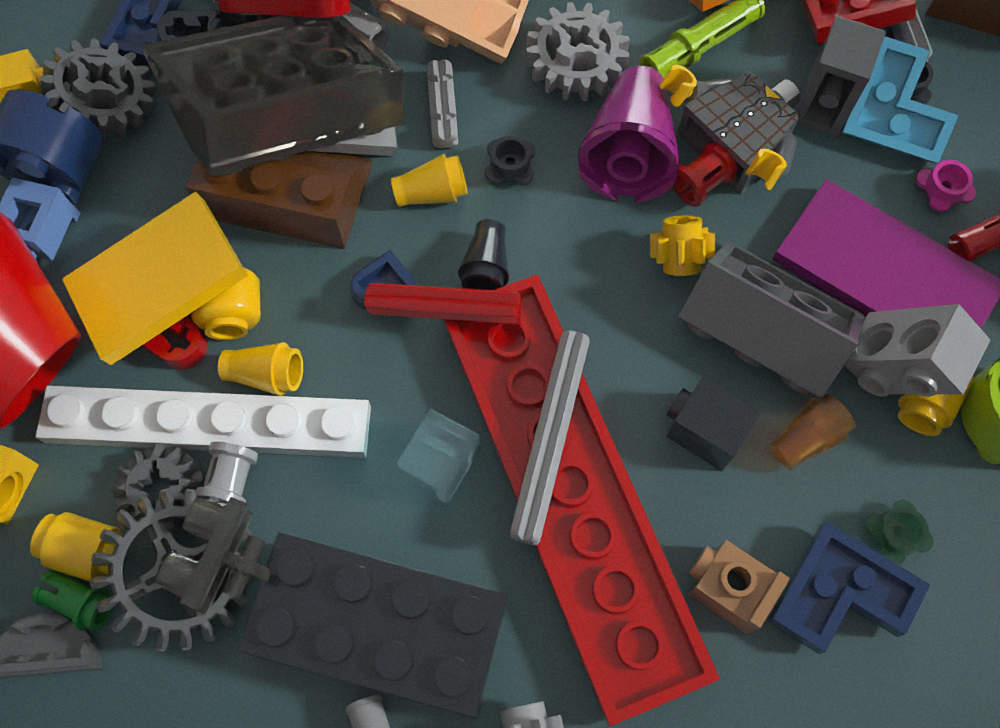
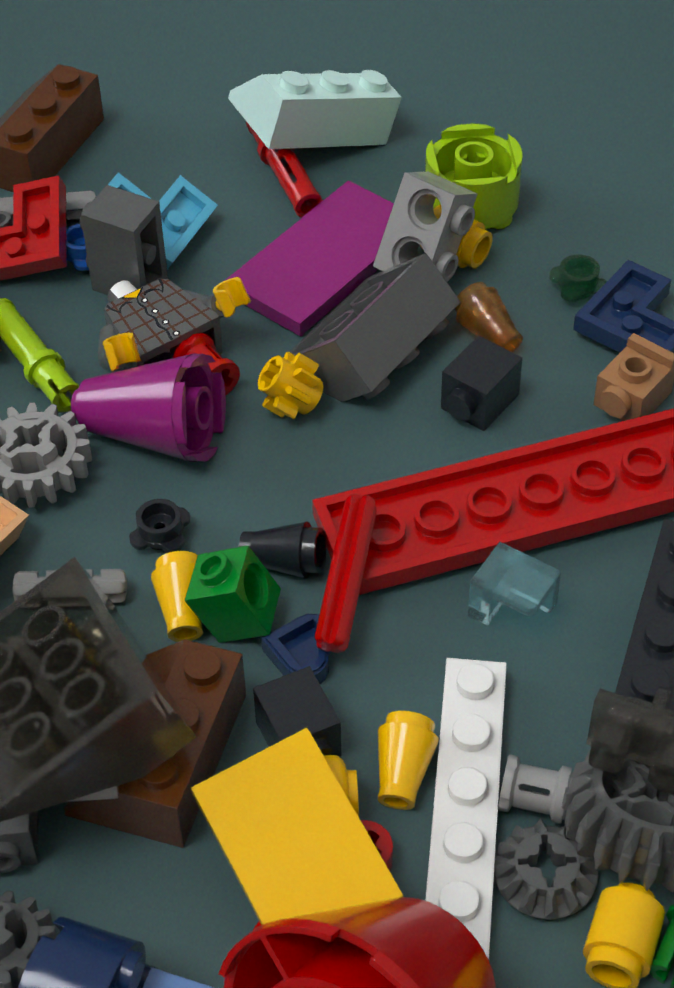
camera: 85 degrees left, 20 degrees down
(294, 281) = (296, 704): none -> black brick
(412, 231) = (233, 594): none -> green brick
(549, 438) = (499, 490): light grey axle -> none
(954, 176) = (239, 204): dark pink plate -> none

